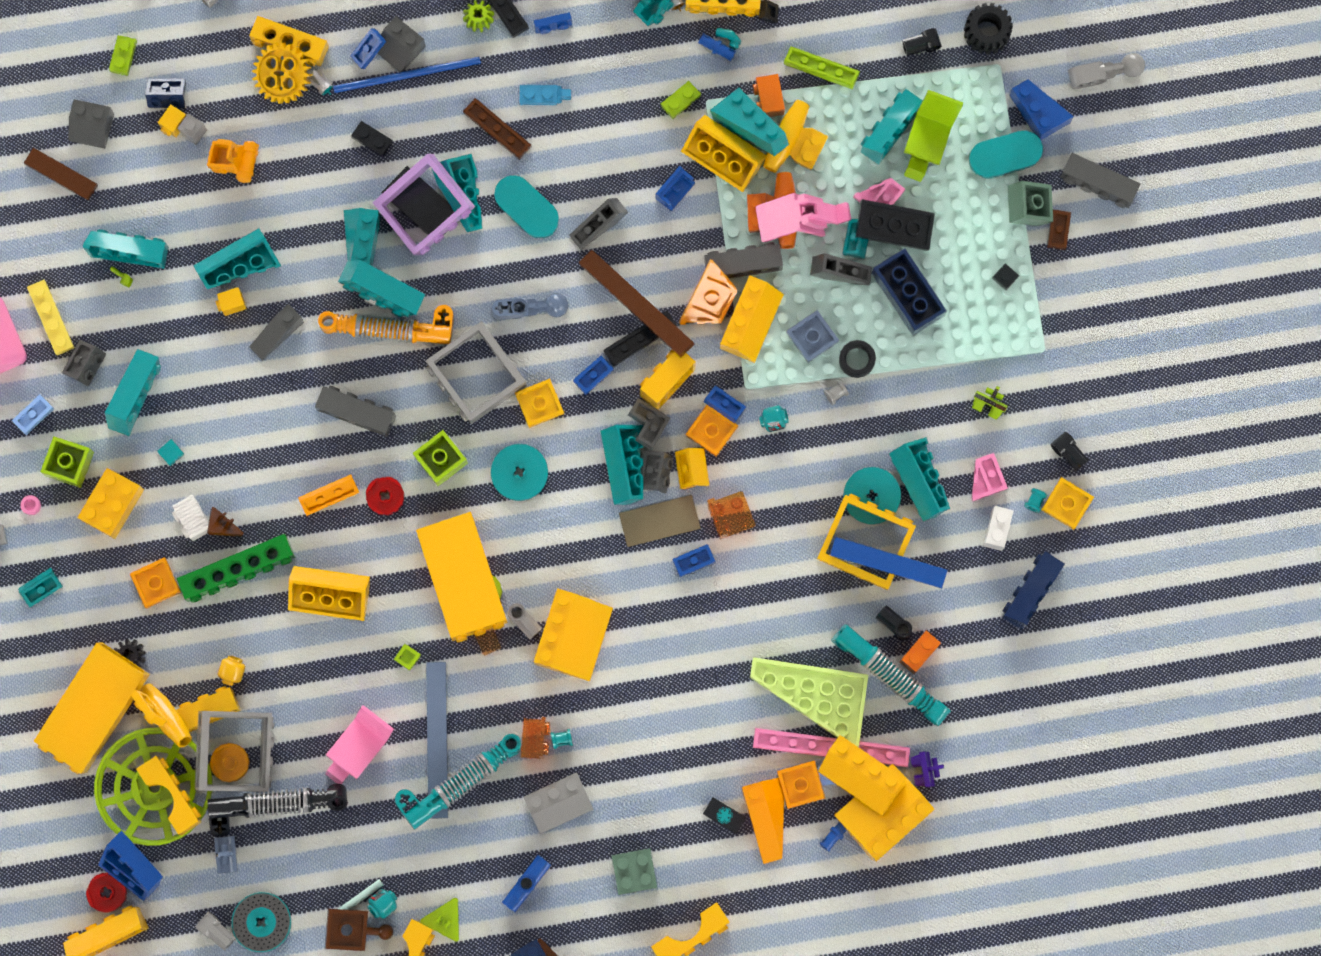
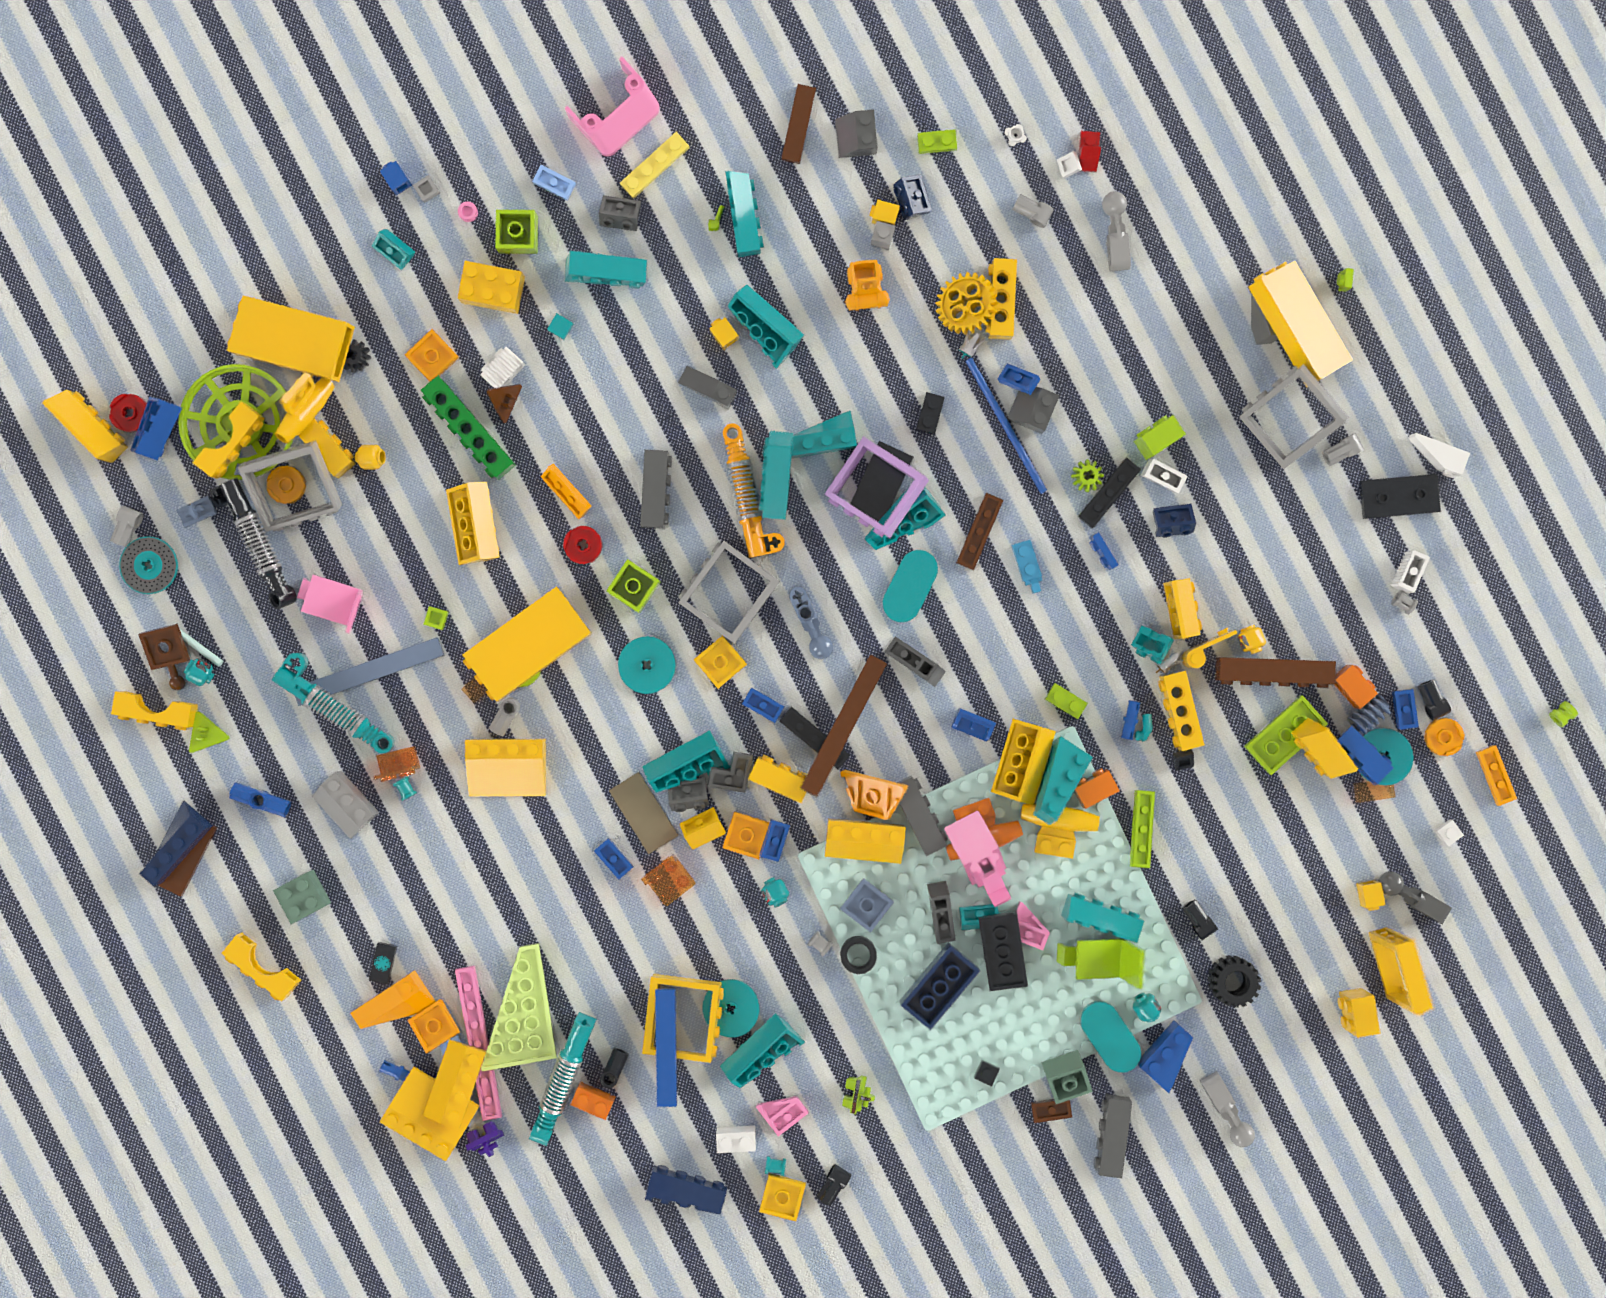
camera: 70 degrees right, 10 degrees up
(987, 112) = (1146, 1007): none -> teal head

